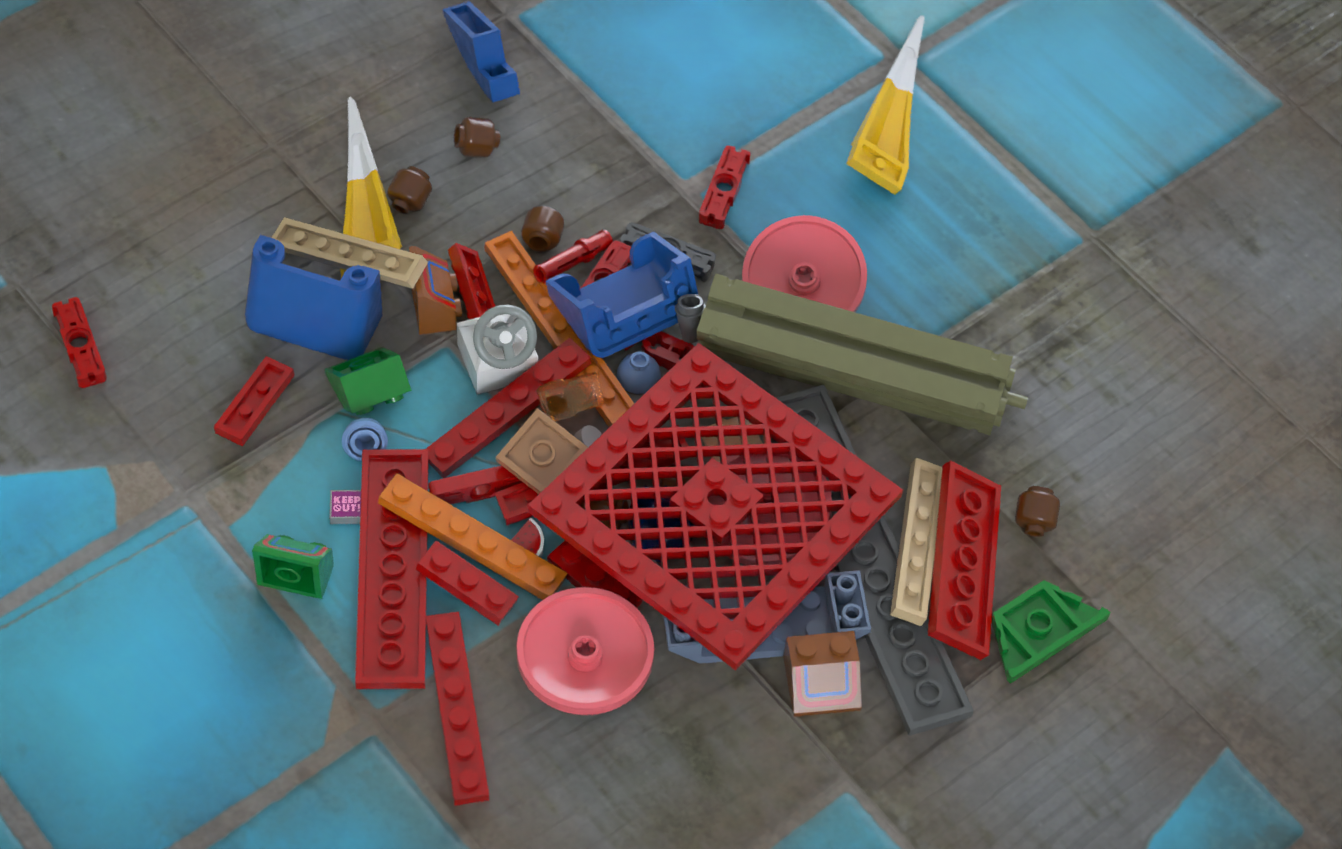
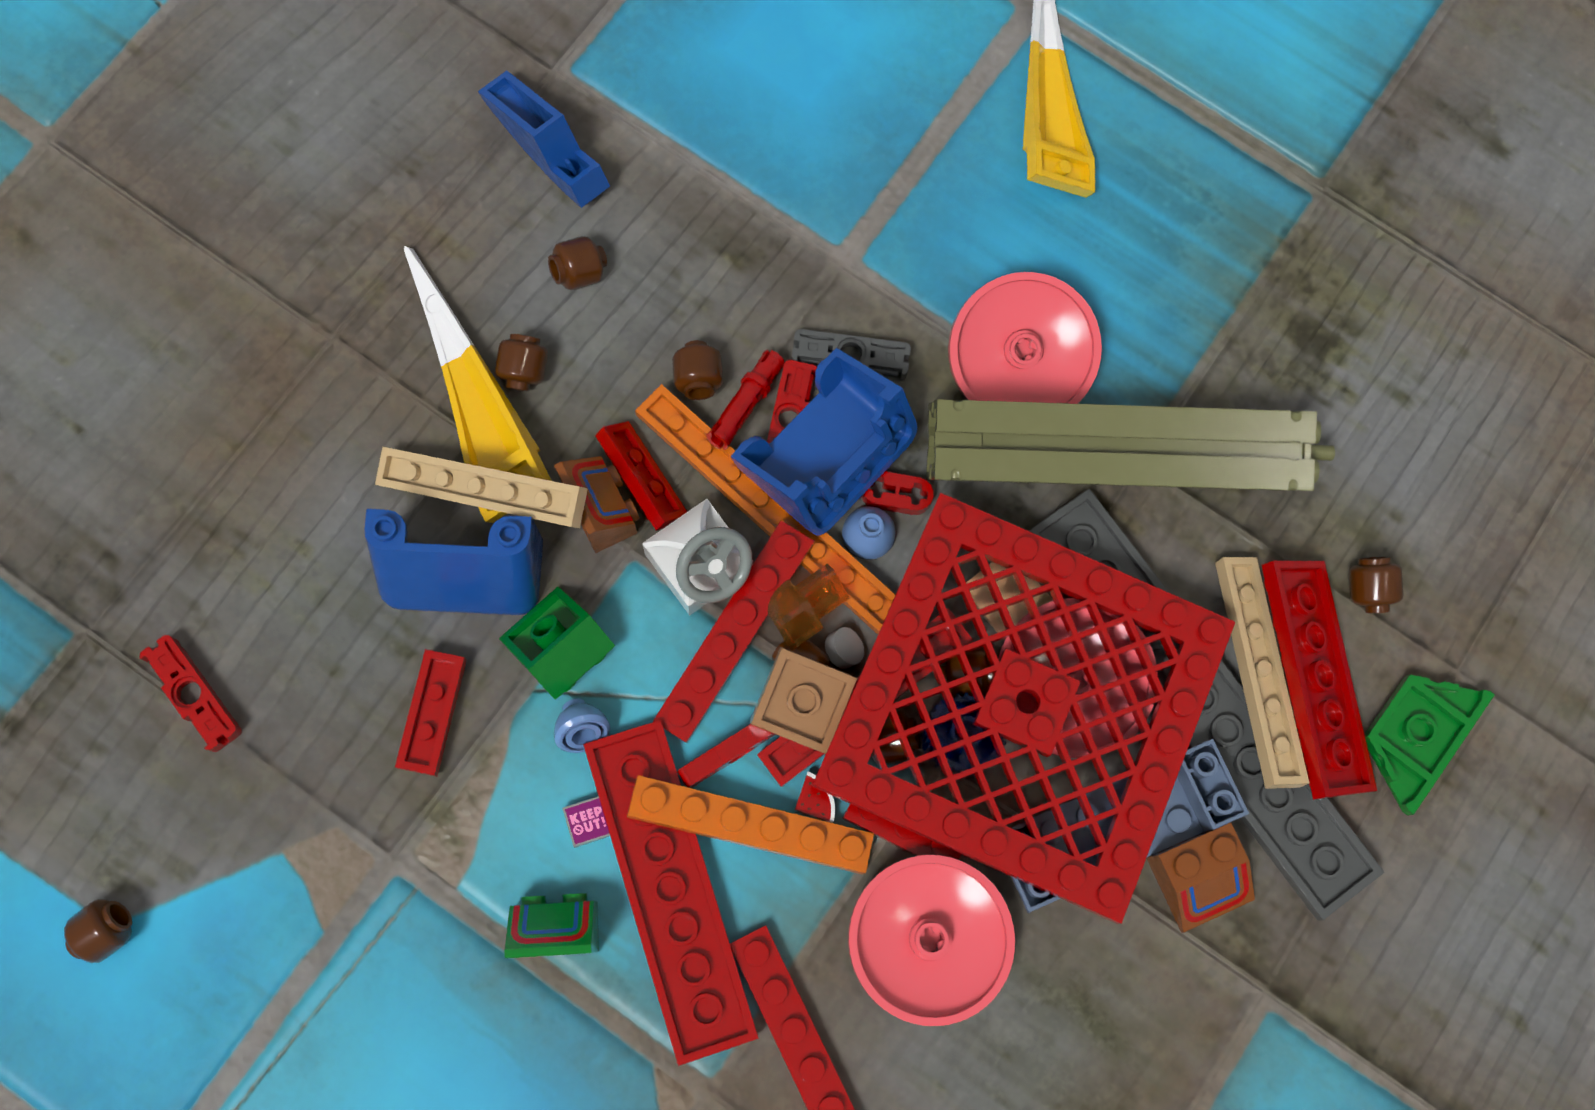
camera: 20 degrees left, 20 degrees up
(467, 583) = (763, 886): red plate -> none
(688, 313) = (914, 449): dark grey cone -> none
(717, 202) = (885, 266): red piece -> none

